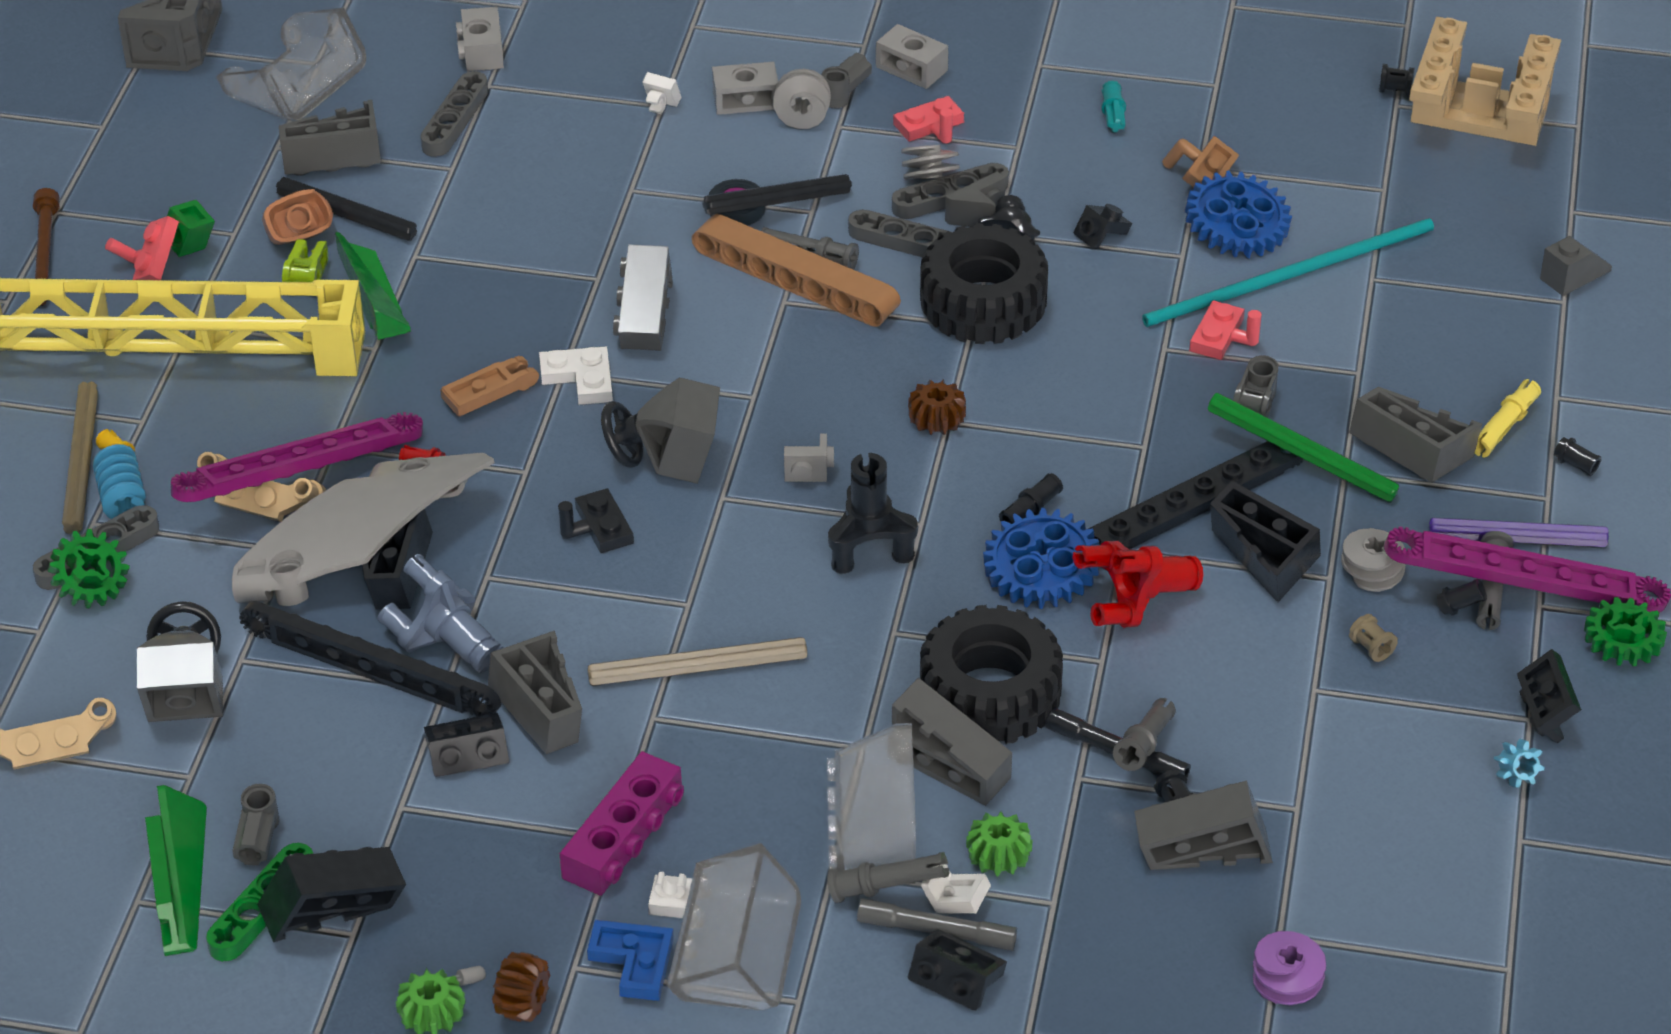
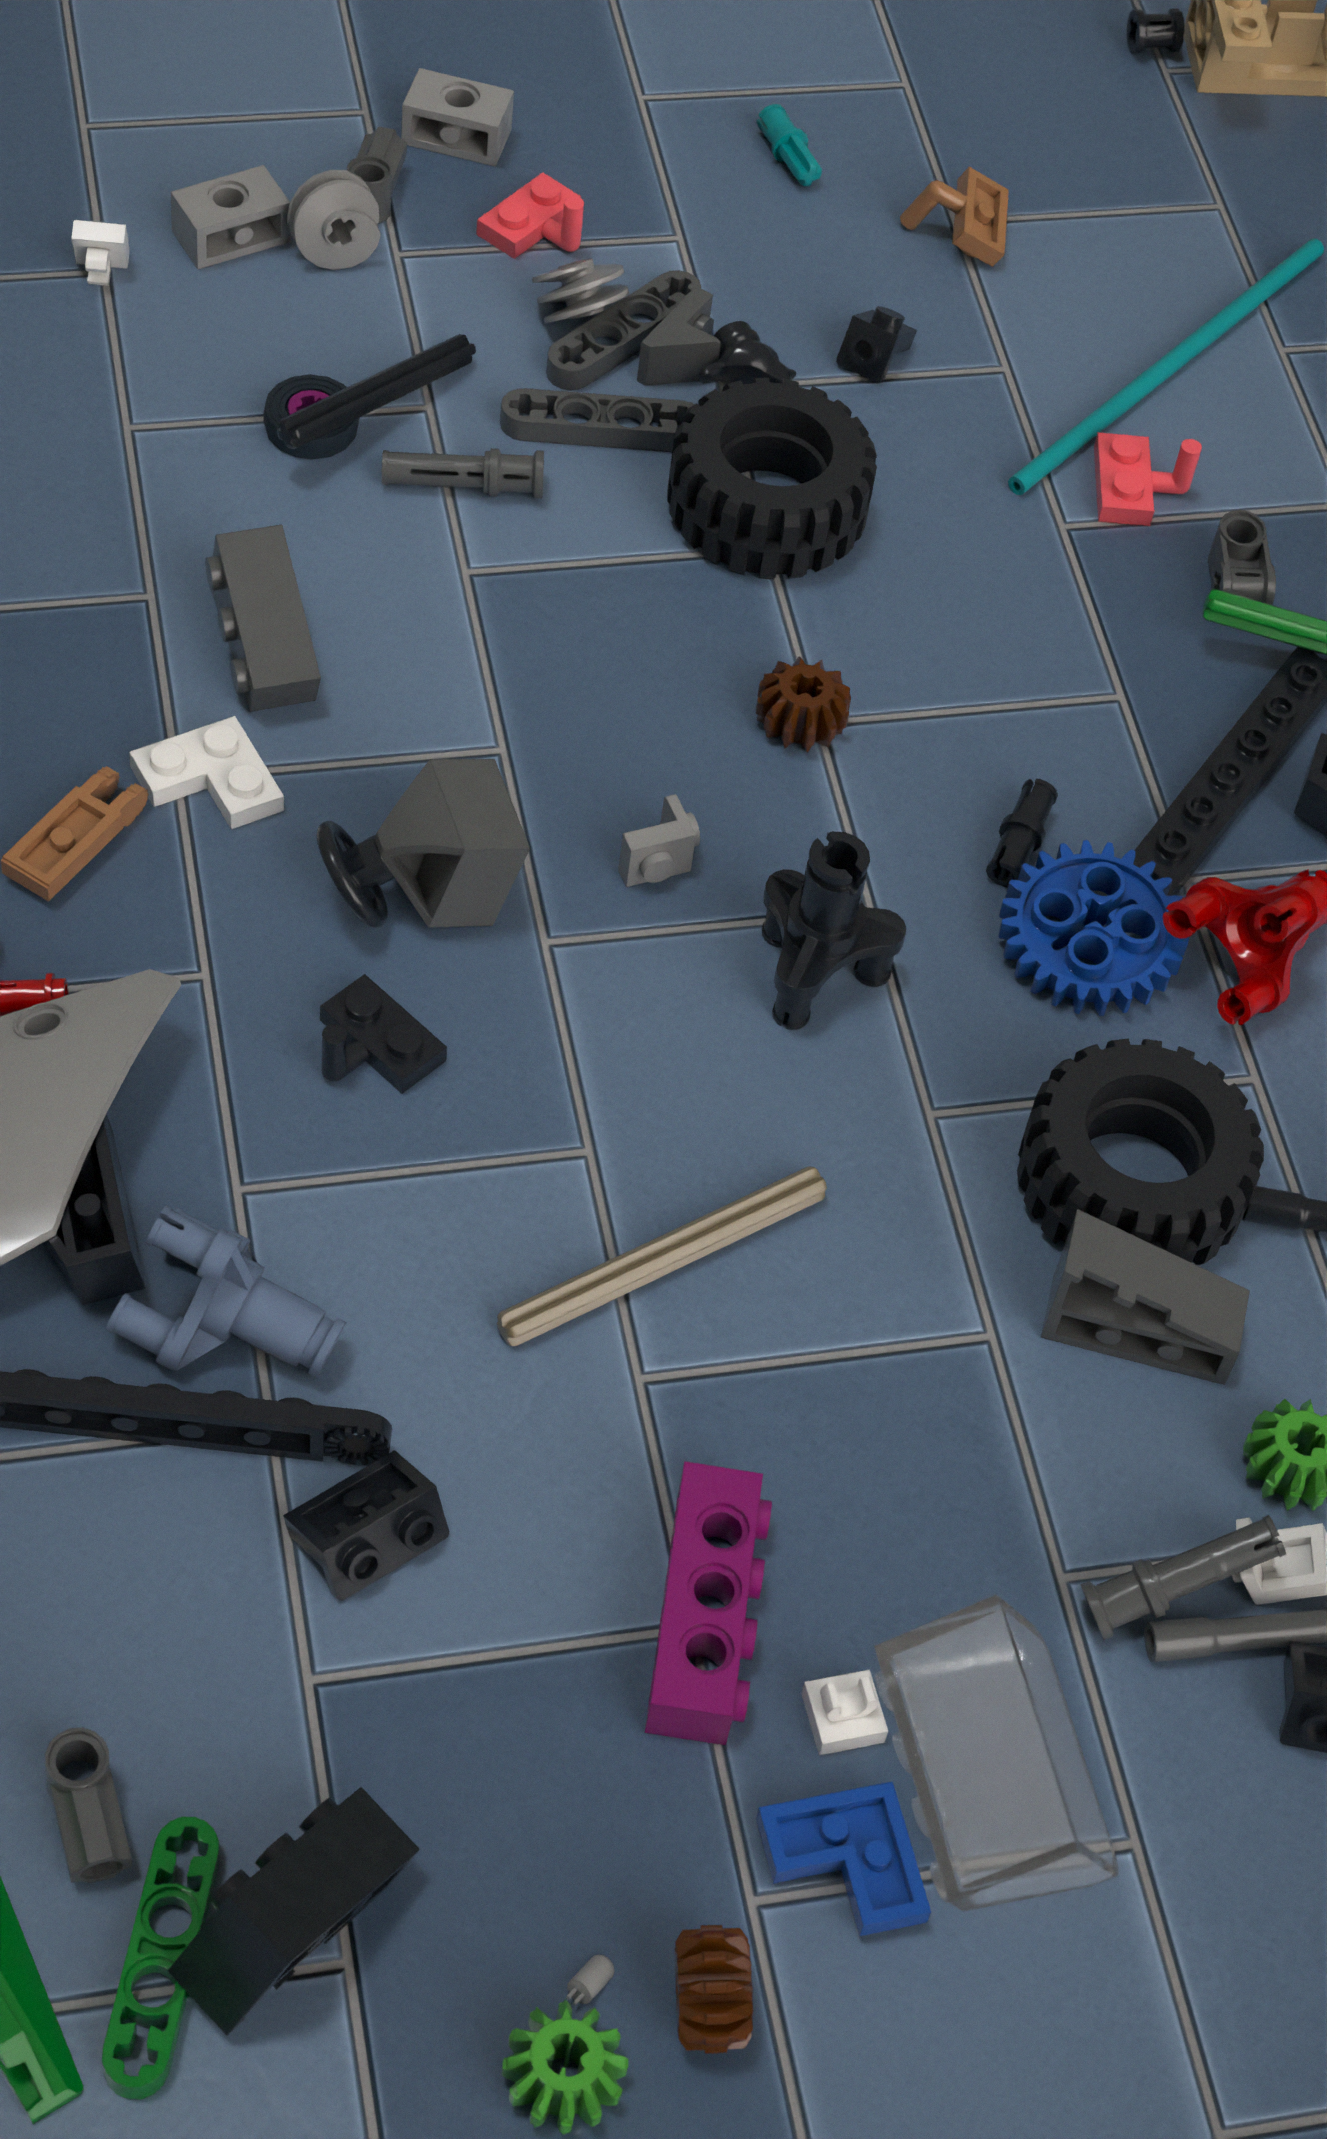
camera: 30 degrees left, 10 degrees up
(538, 691) = (455, 1394): dark grey wedge -> none
(796, 270) = (465, 514): medium nougat beam -> none
(873, 800) = (1094, 1444): clear windscreen -> none
(1238, 214) = (1060, 285): blue gear -> none

